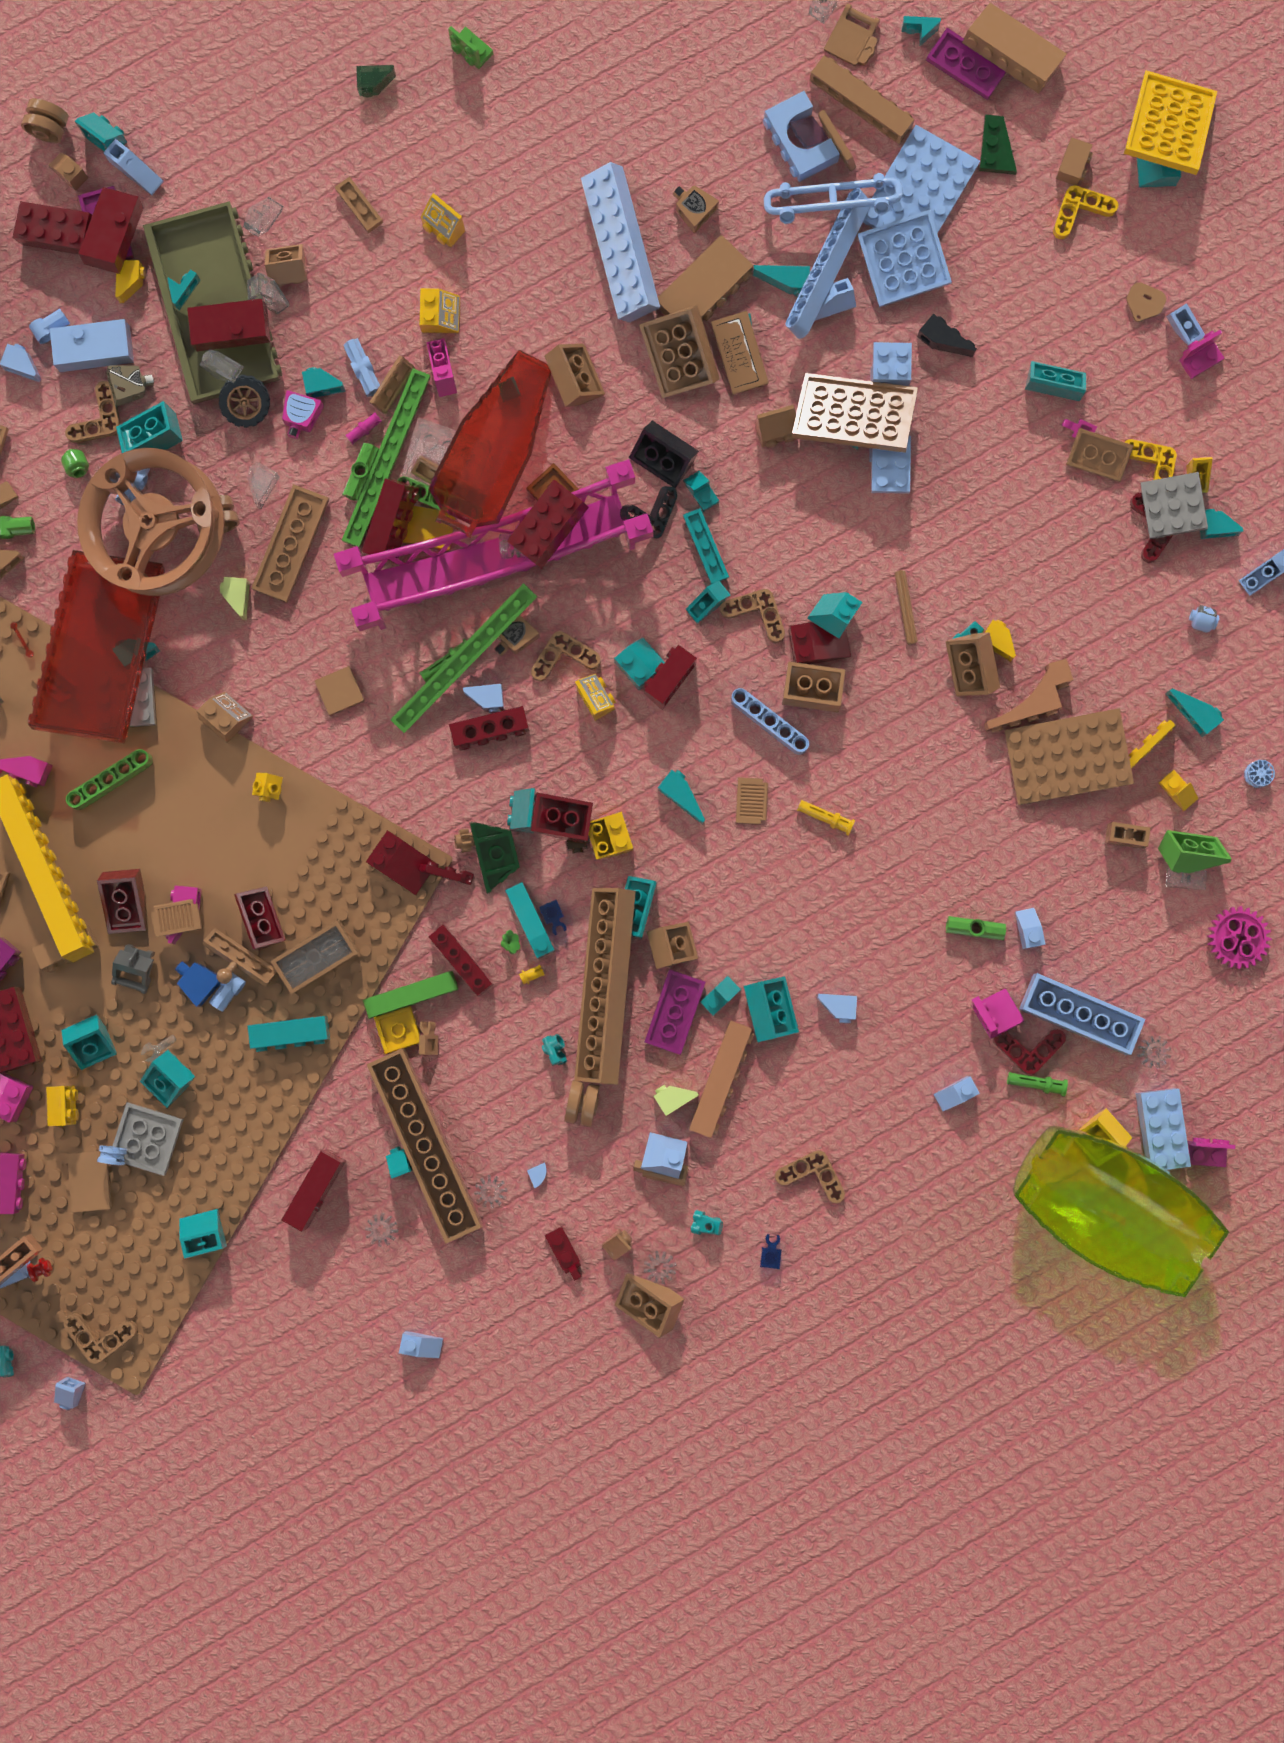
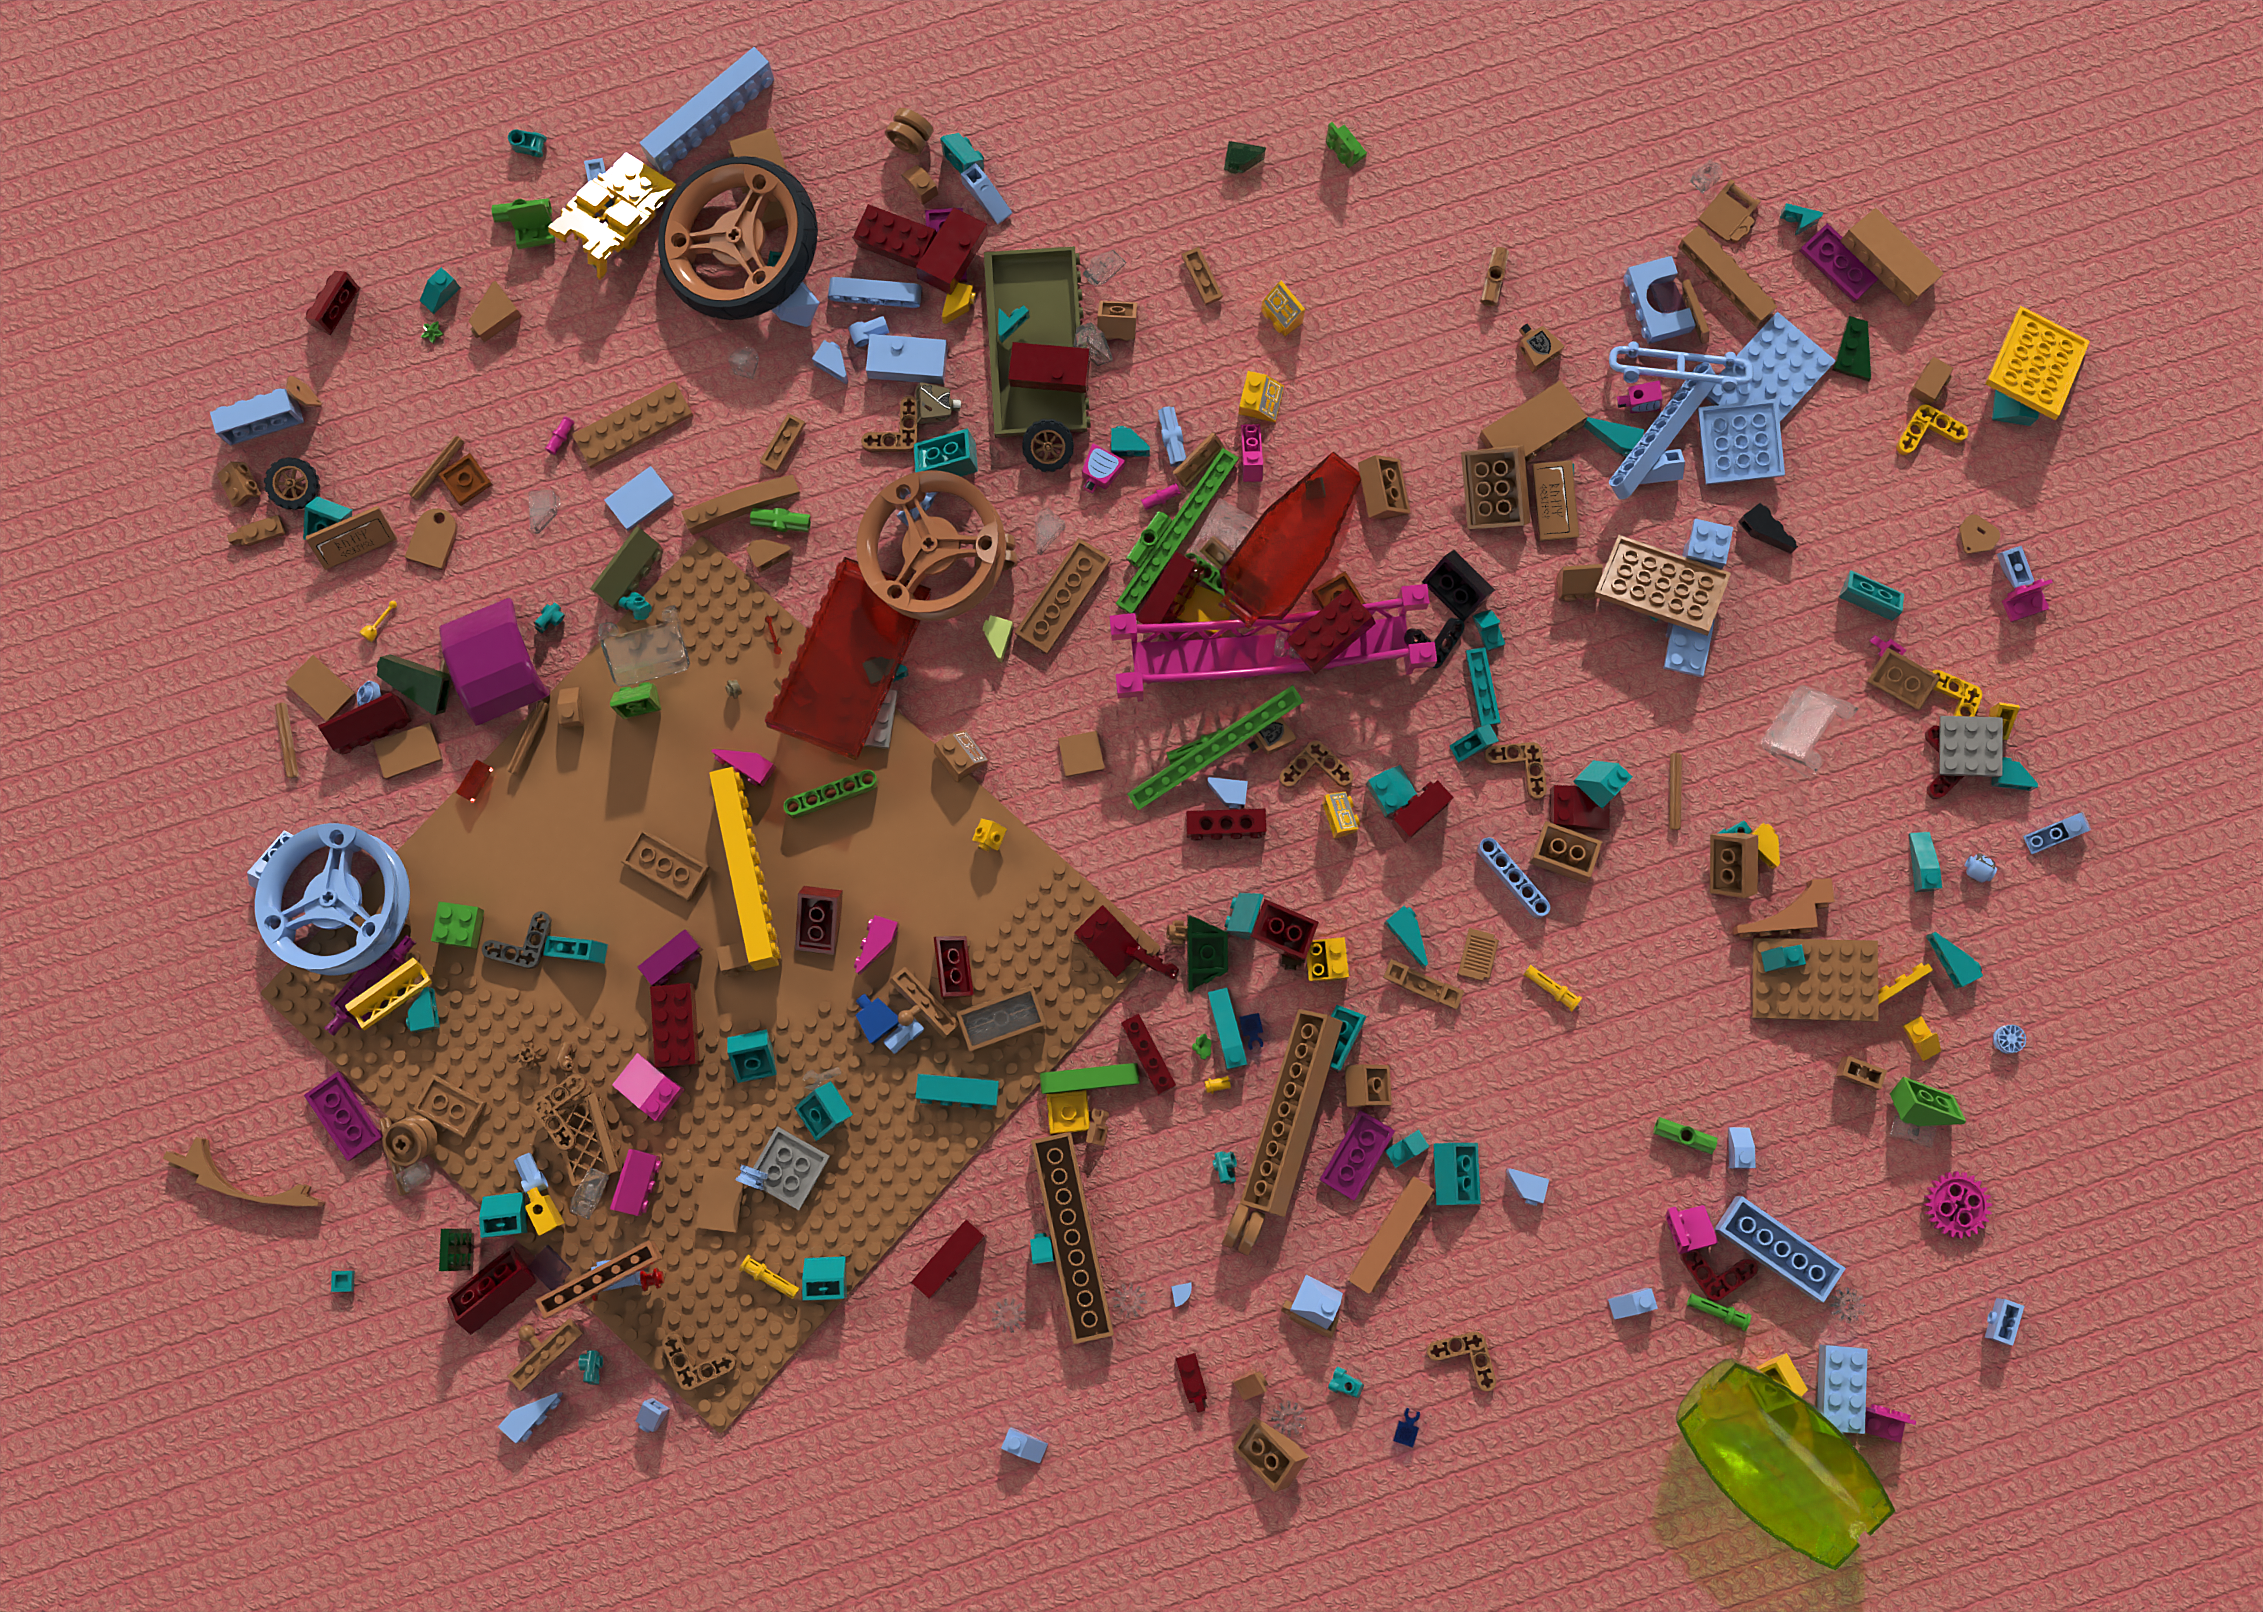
camera: 10 degrees right, 5 degrees down
(47, 286) = (874, 292): none -> light blue beam
(62, 1105) = (710, 1115): yellow slope -> none
(75, 463) = (864, 471): bright green head -> none
(134, 962) = (816, 984): dark grey piece -> none
(140, 1241) = (760, 1272): none -> yellow pin
(176, 918) = (869, 948): medium nougat window -> none
(221, 366) = (1033, 406): clear slope -> none
(620, 242) = (1457, 367): light blue brick -> none
(639, 136) = (1492, 286): none -> medium nougat piece
(673, 1097) = (1337, 1244): yellowish green slope -> none
(704, 840) = (1423, 985): none -> medium nougat slope
(802, 235) = (1642, 398): none -> dark pink torso
(1012, 519) = (1802, 725): none -> clear windscreen
(1035, 743) = (1783, 958): none -> teal slope
(1151, 625) = (1924, 863): none -> teal slope

